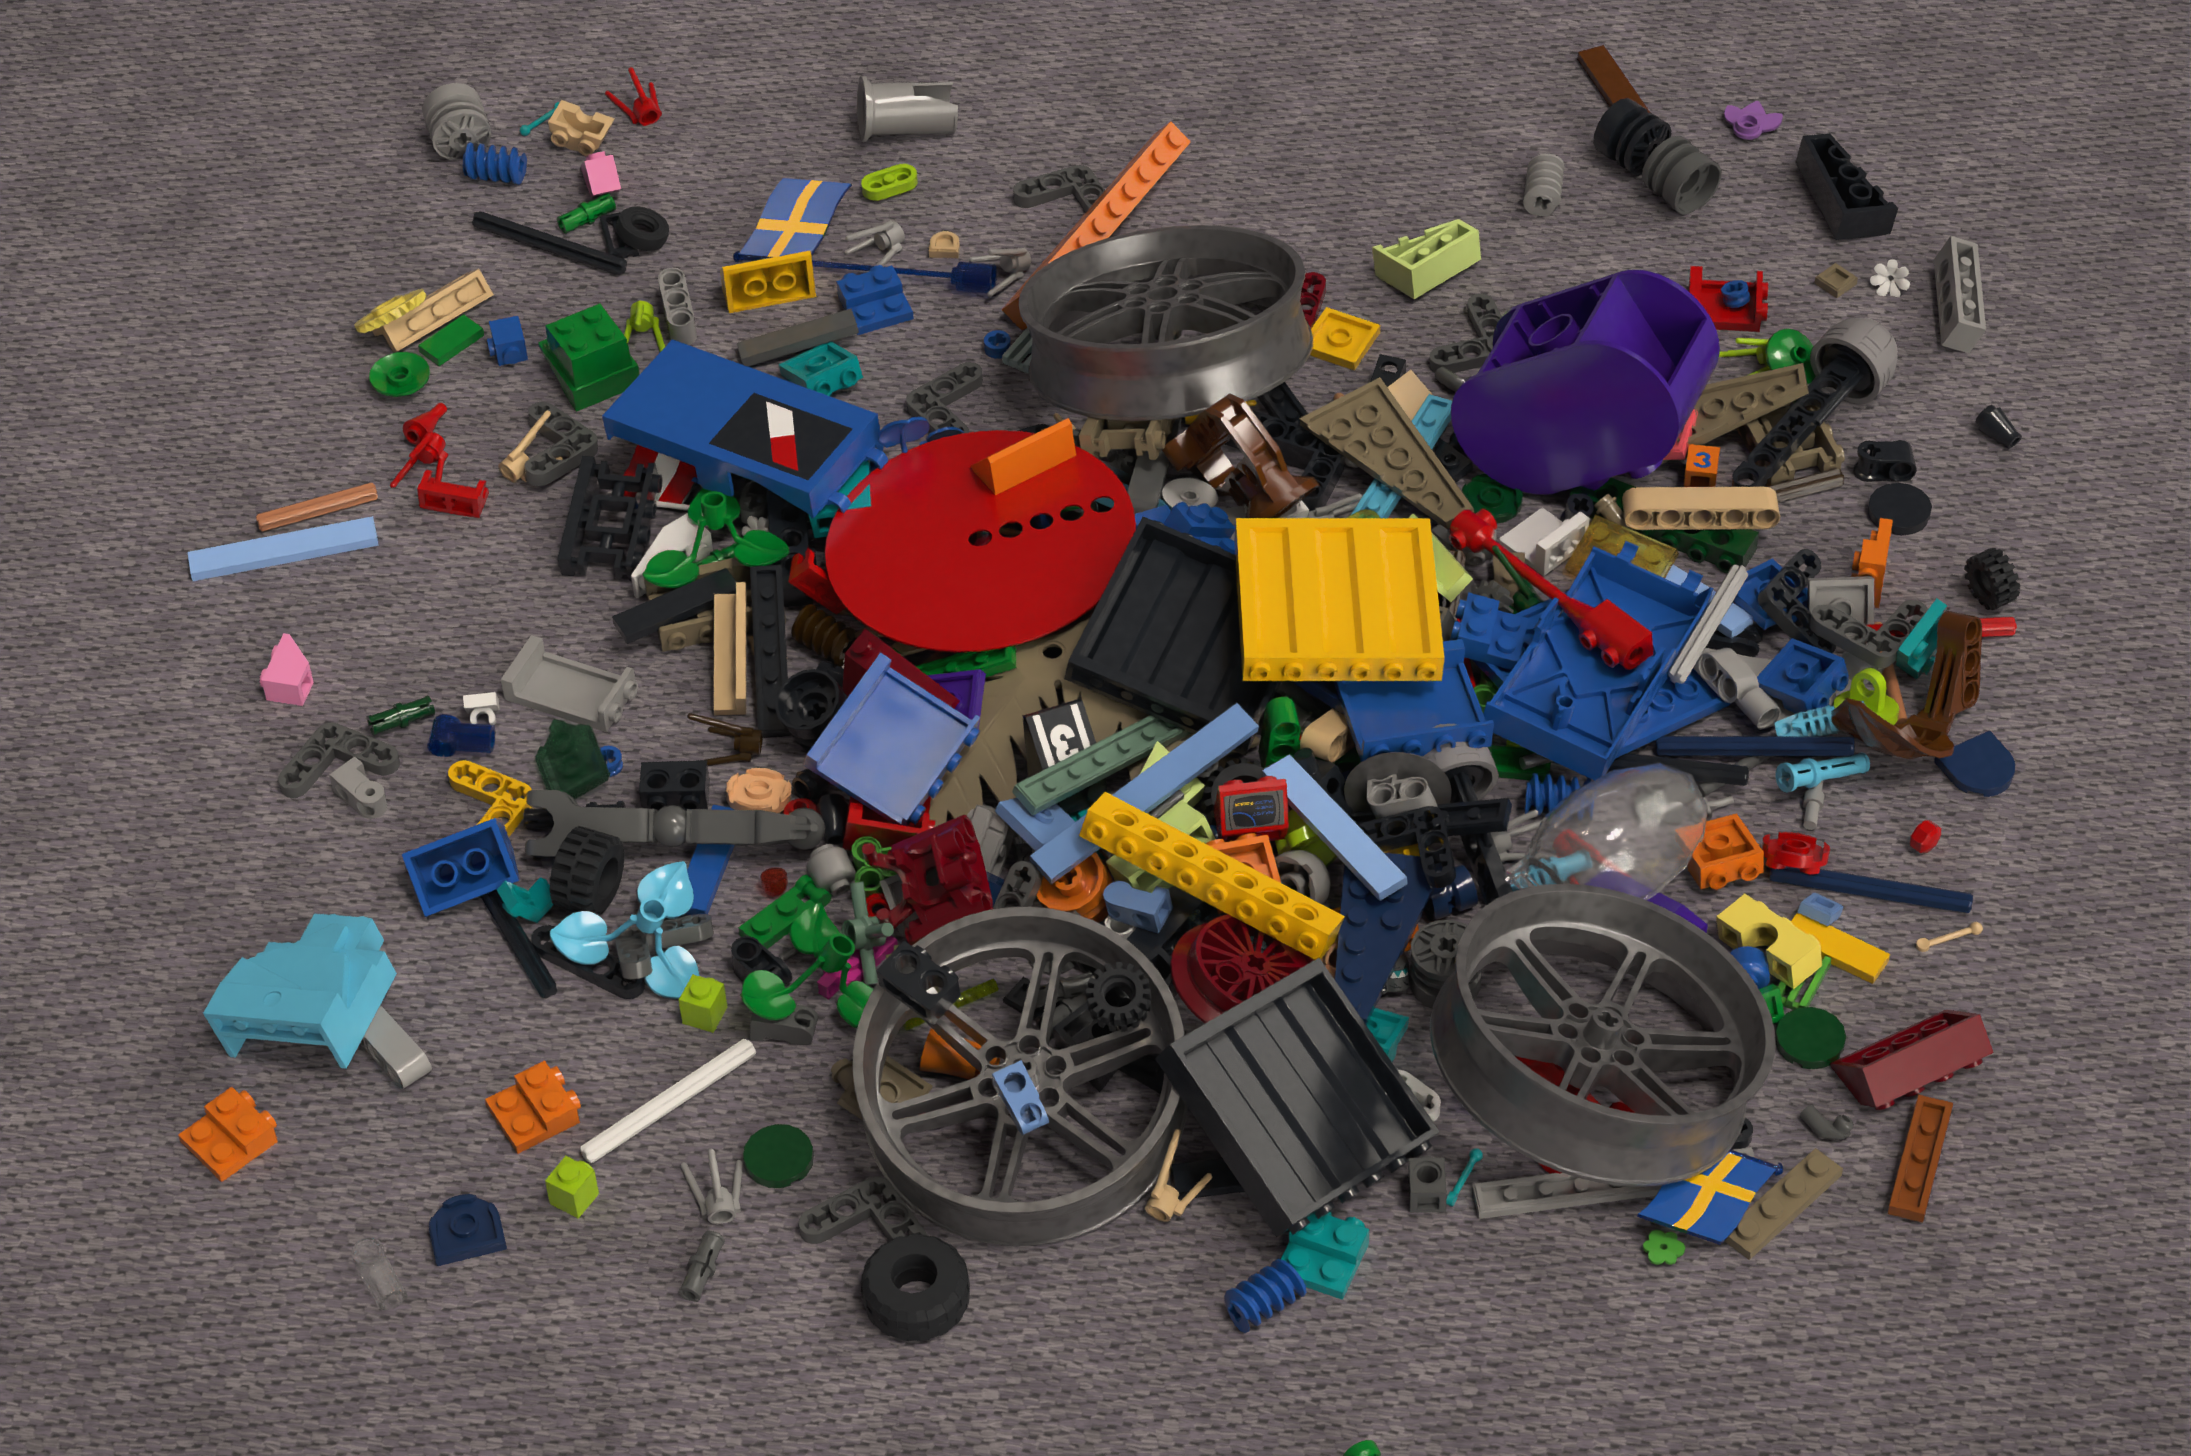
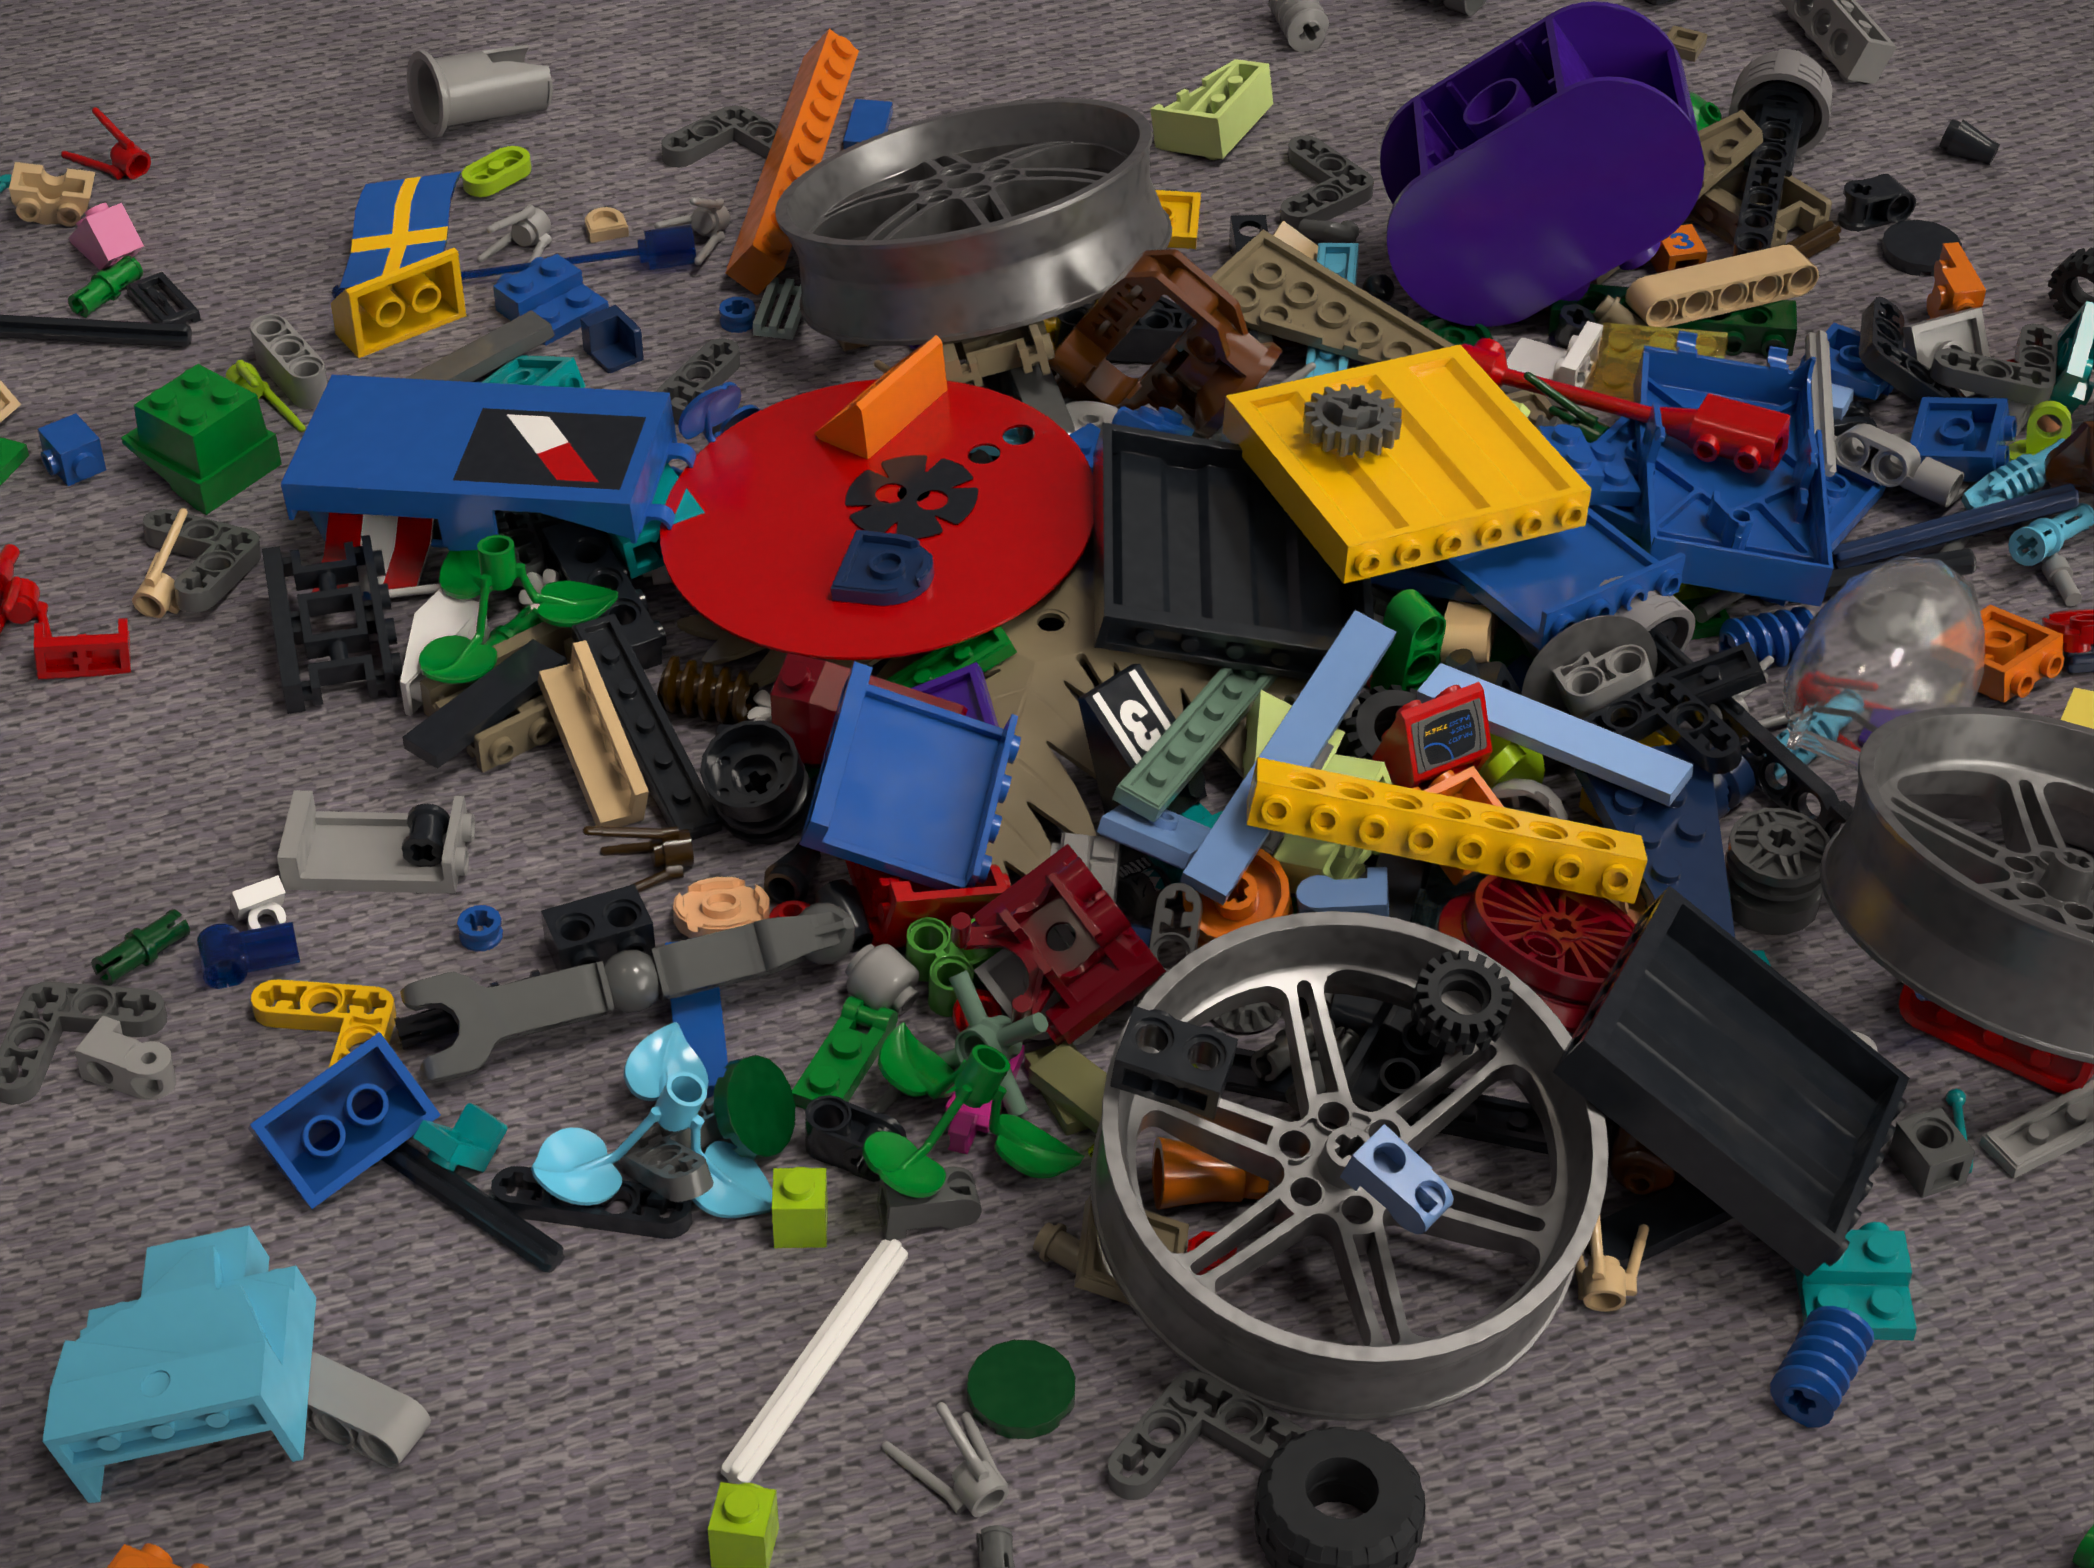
camera: 25 degrees left, 5 degrees down
(534, 1107) = (619, 1430): orange plate -> none
(571, 759) = (429, 934): clear green tile -> none
(587, 871) = (541, 1072): black tyre -> none
(599, 688) = (427, 828): none -> black bush
(637, 238) = (195, 284): black tyre -> none
(706, 931) = (754, 1107): none -> dark green tile
(774, 881) = (808, 1018): clear red hinge -> none
(814, 581) = (675, 625): red hinge -> none
(898, 344) = (612, 339): none -> dark blue panel
(956, 583) = (883, 569): none -> dark blue tile
(998, 550) = (911, 518): none -> black piece
(1172, 205) = (867, 120): none -> blue tile
(1298, 563) = (1352, 421): none -> dark grey gear
(1889, 283) = (1751, 24): white plant -> none

